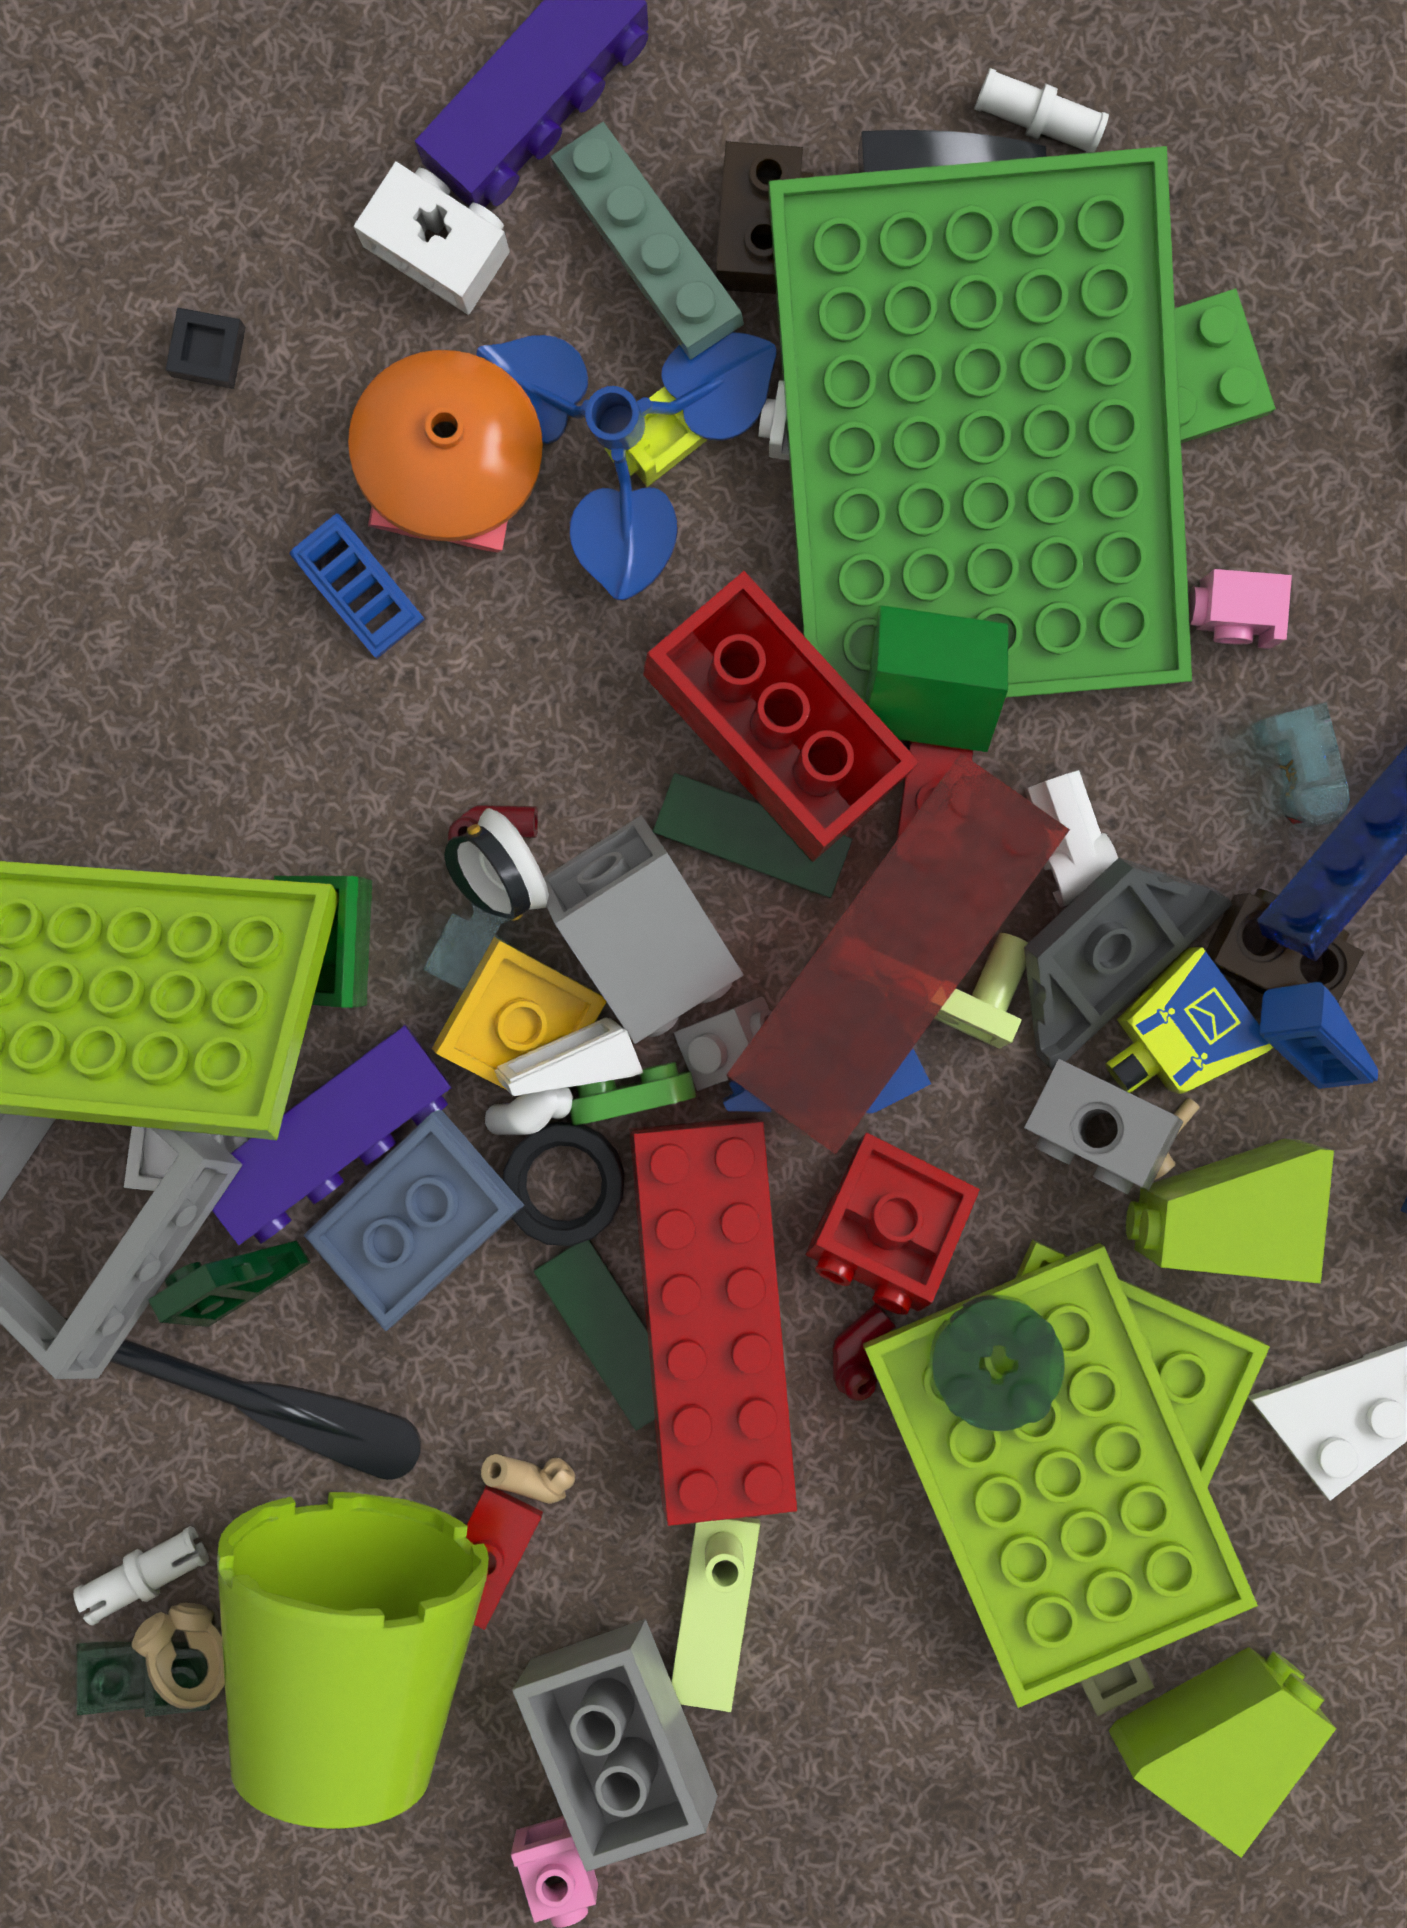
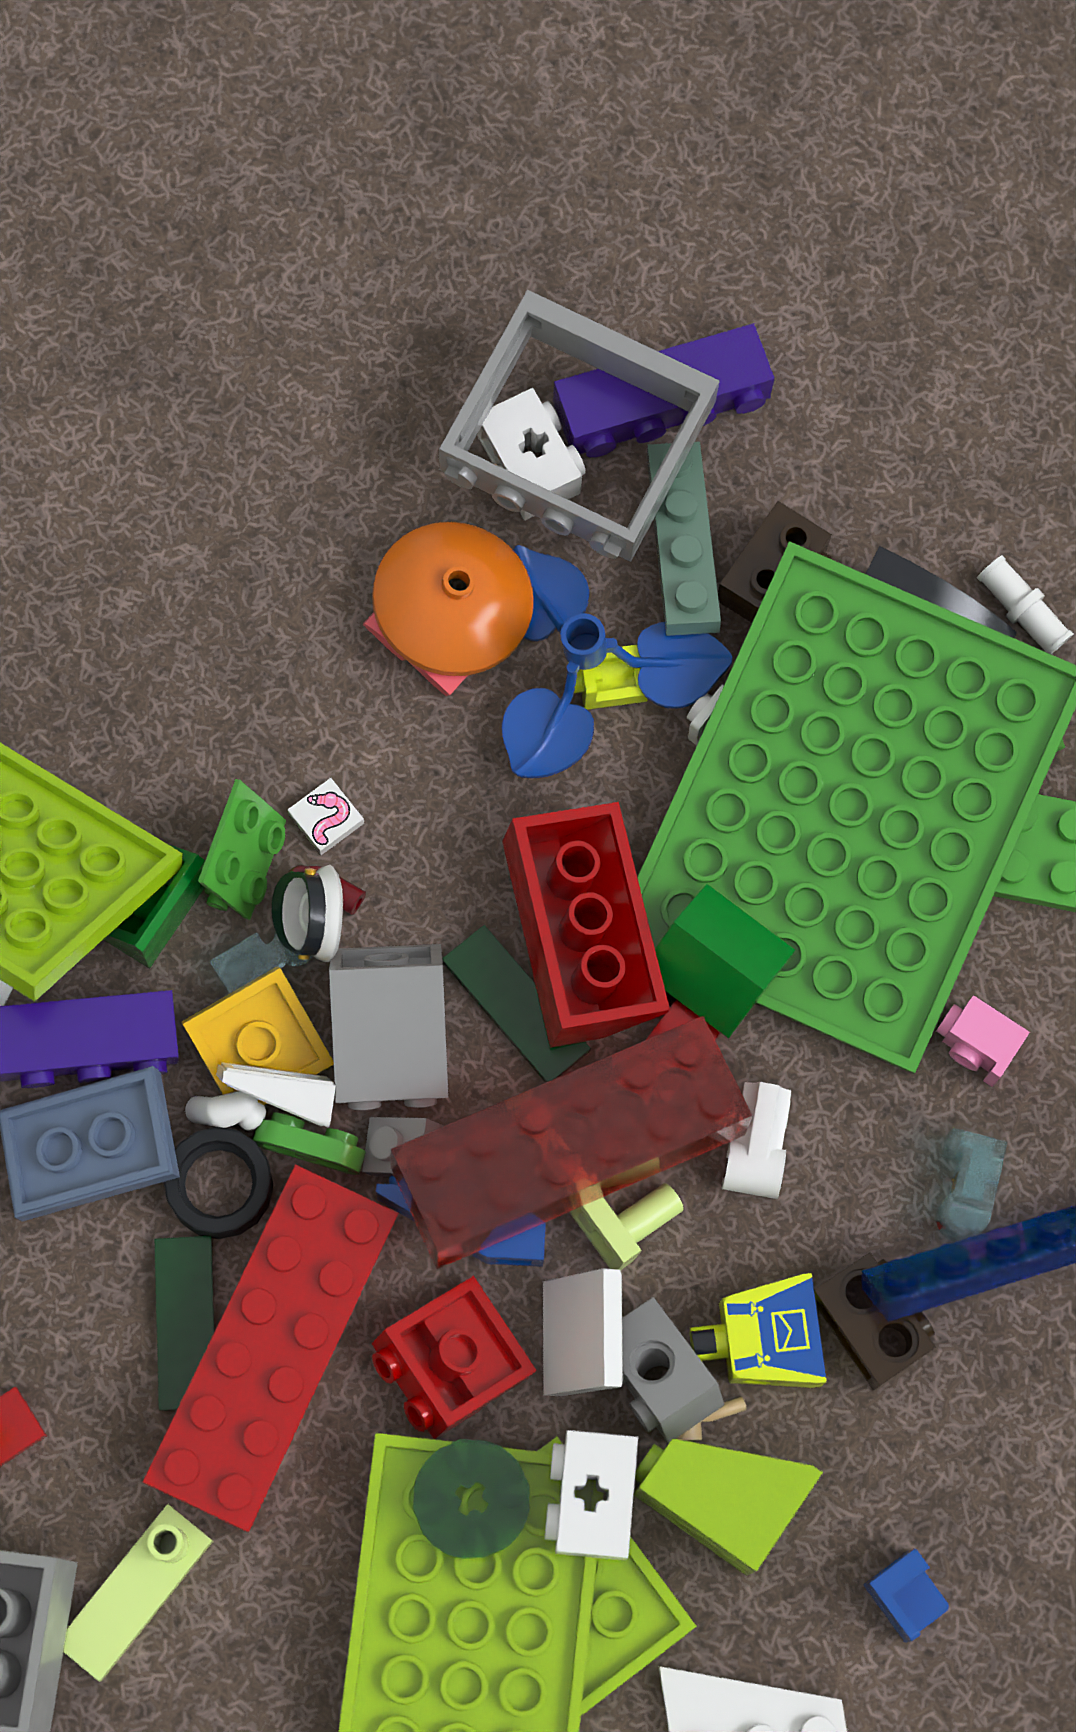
camera: 25 degrees right, 15 degrees down
(205, 348) = (320, 439): black plate -> none
(323, 541) = (321, 617): blue slope -> none
(389, 840) = (242, 852): none -> bright green hinge
(450, 750) = (325, 816): none -> white tile
(463, 73) = (610, 353): none -> light grey window
(528, 1479) = (49, 1397): tan arm -> none
(850, 1361) = (355, 1457): dark red arm -> none
(1010, 1134) = (582, 1333): none -> white tile
(1109, 950) = (740, 1238): dark grey wing -> none
(1145, 1324) = (613, 1464): none -> white brick
(1315, 1036) = (862, 1391): blue slope -> none

